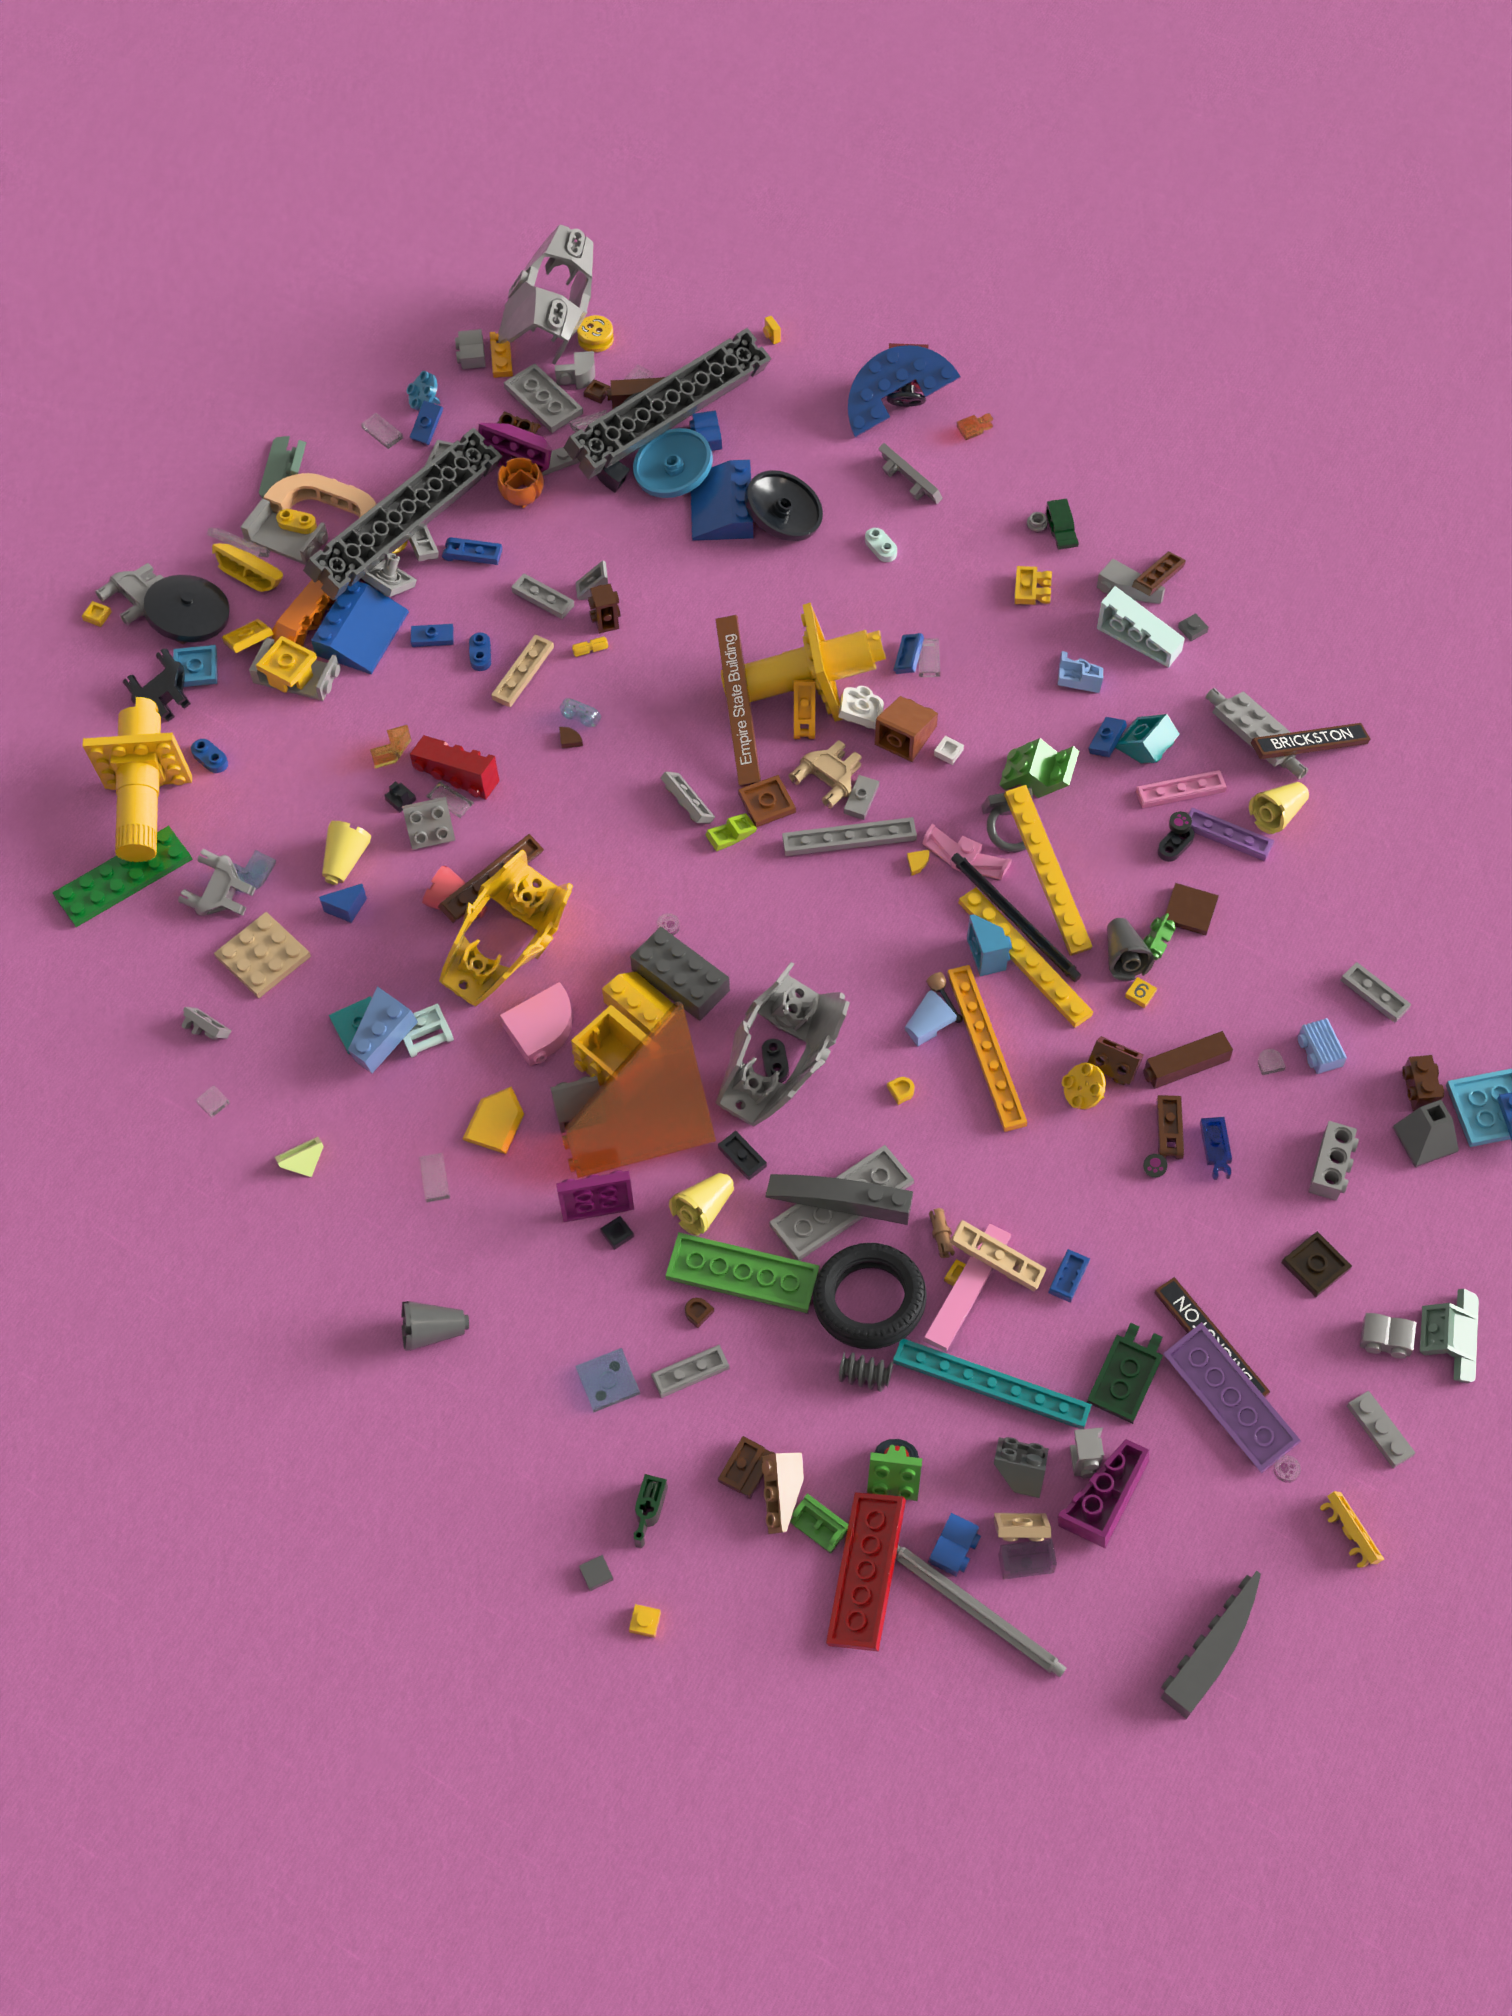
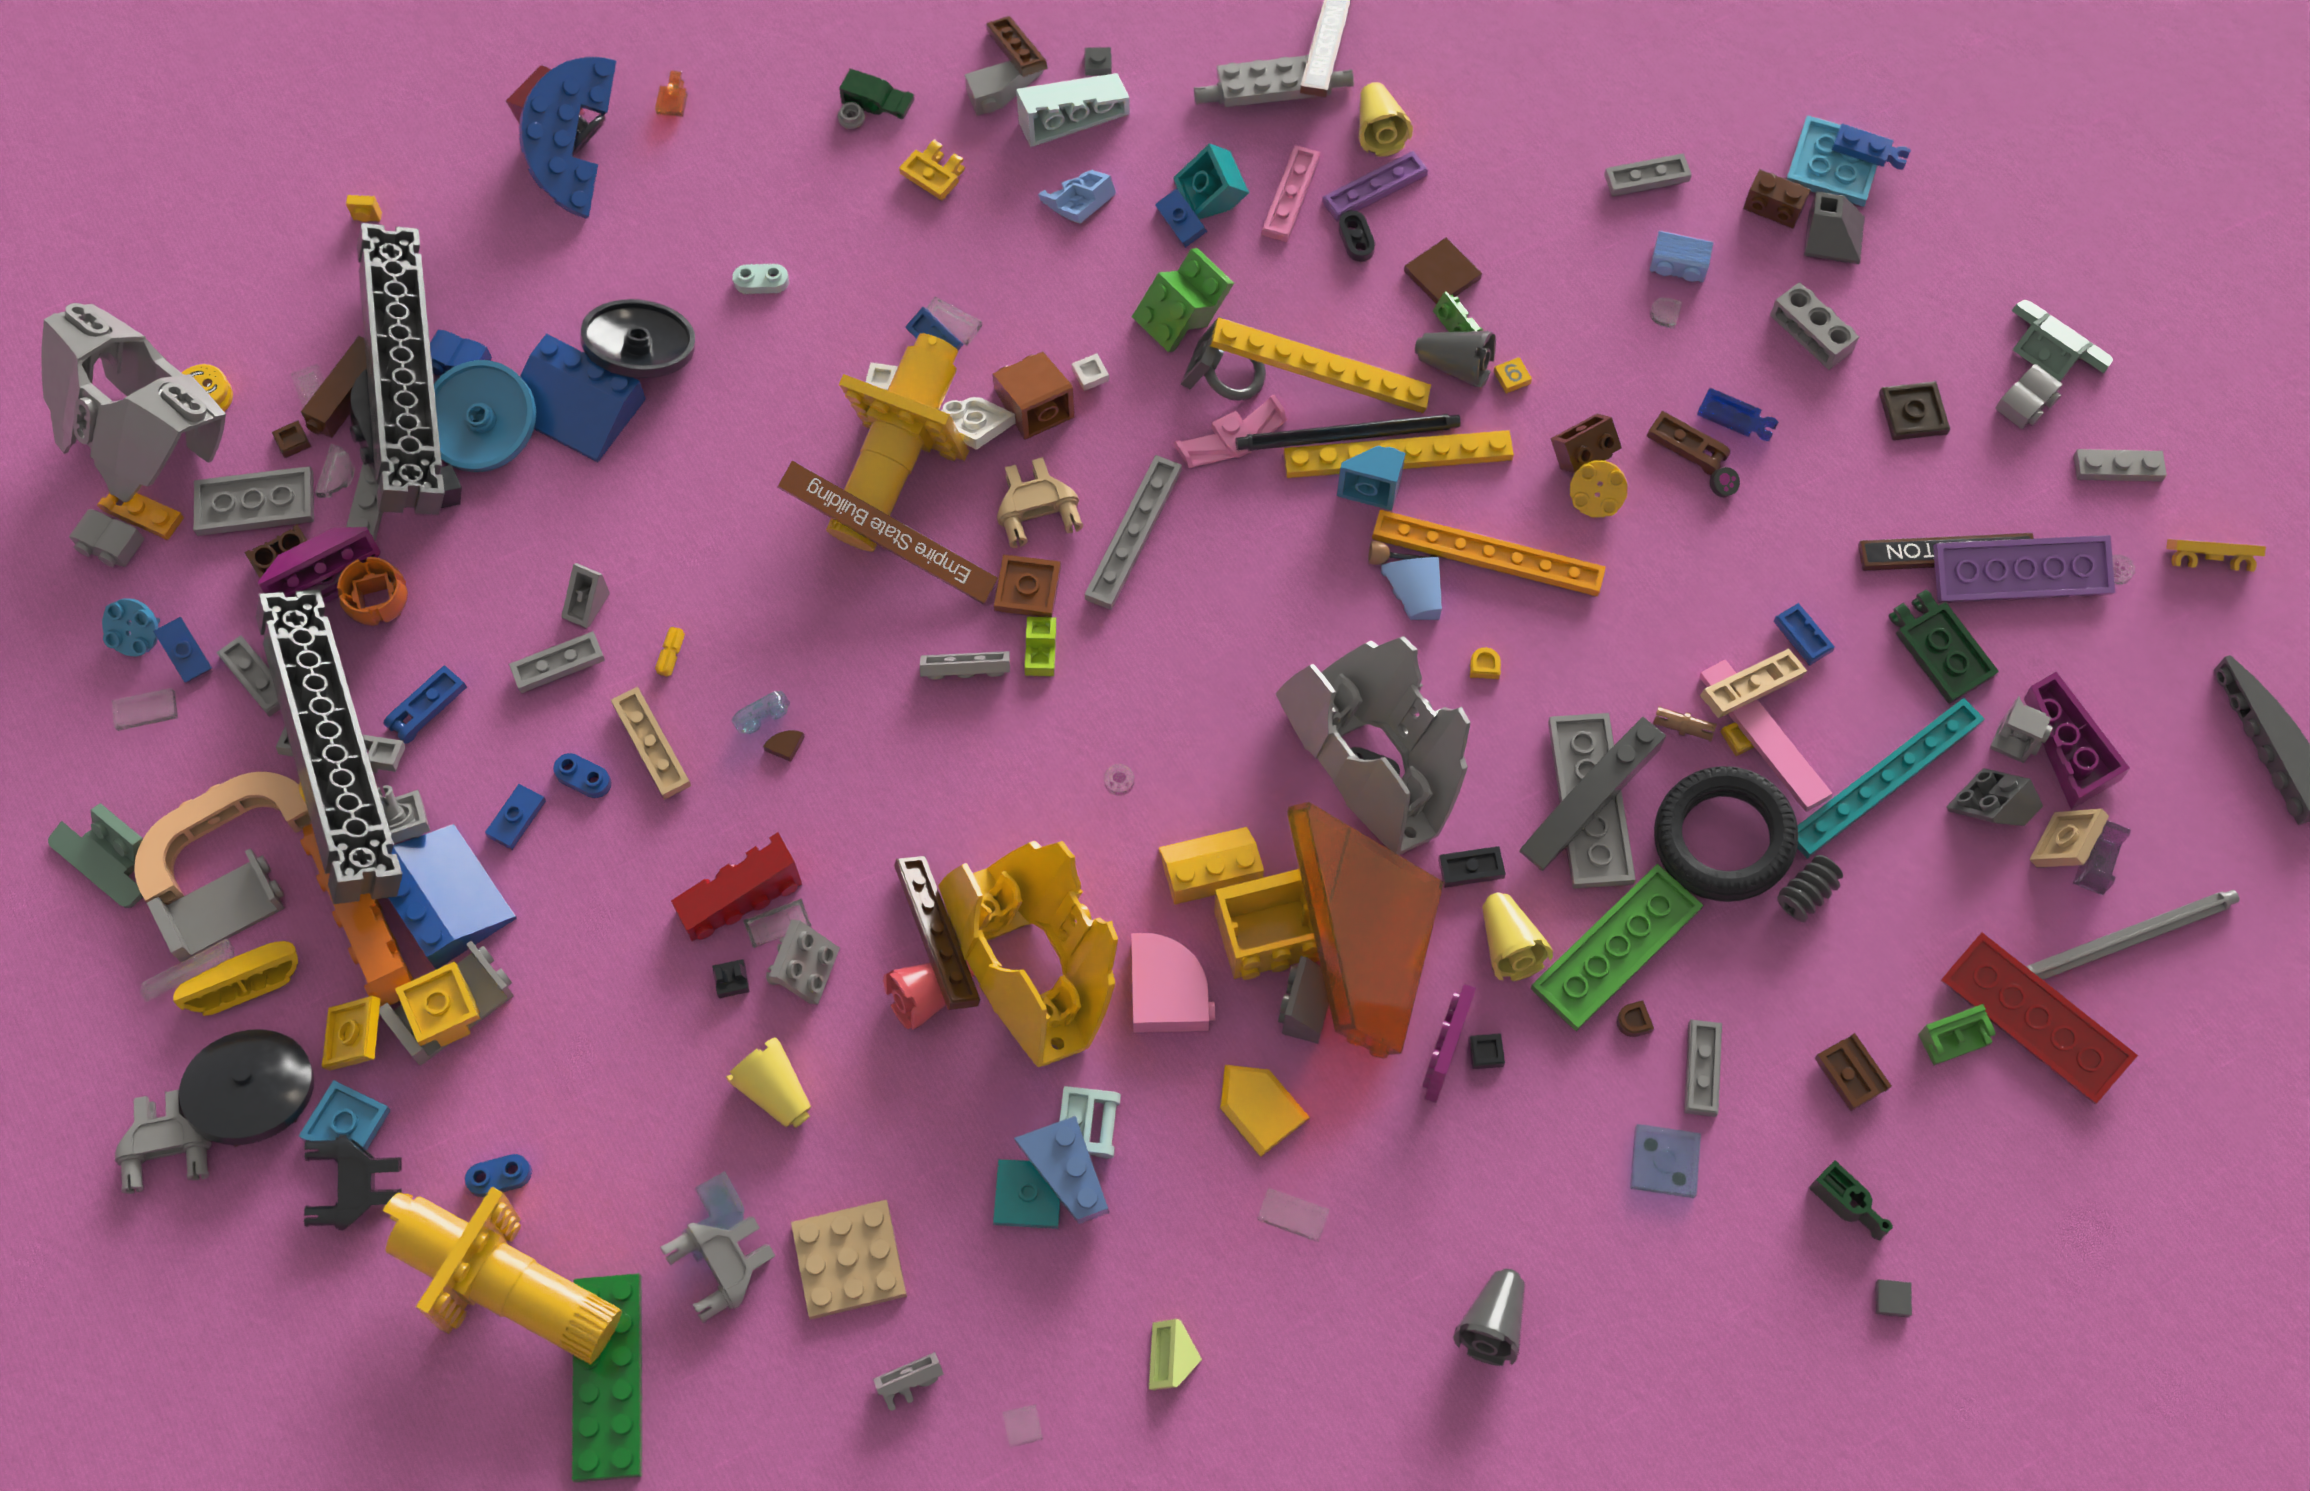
camera: 60 degrees left, 5 degrees up
(96, 614) = (155, 1208): yellow tile -> none
(296, 521) = (210, 884): yellow plate -> none
(345, 902) = (845, 1123): blue slope -> none
(389, 754) = (648, 939): clear yellow slope -> none
(579, 373) = (248, 441): light grey brick -> none
(605, 608) = (637, 602): reddish brown brick -> none
(644, 1621) = (1975, 1276): yellow plate -> none
(680, 973) = (1199, 800): dark grey brick -> none
(782, 1486) = (1903, 1048): slope -> none
(804, 708) = (942, 475): light orange plate -> none
(861, 797) = (1091, 493): light grey plate -> none
(895, 1470) = (1940, 922): bright green plate -> none
(917, 861) = (1210, 484): yellow tile -> none
(921, 484) = (691, 192): light grey hinge -> none
(954, 1544) = (2050, 916): blue brick -> none
(1180, 822) = (1341, 215): pearl dark grey tile -> none
(1187, 1060) = (1623, 378): reddish brown brick -> none

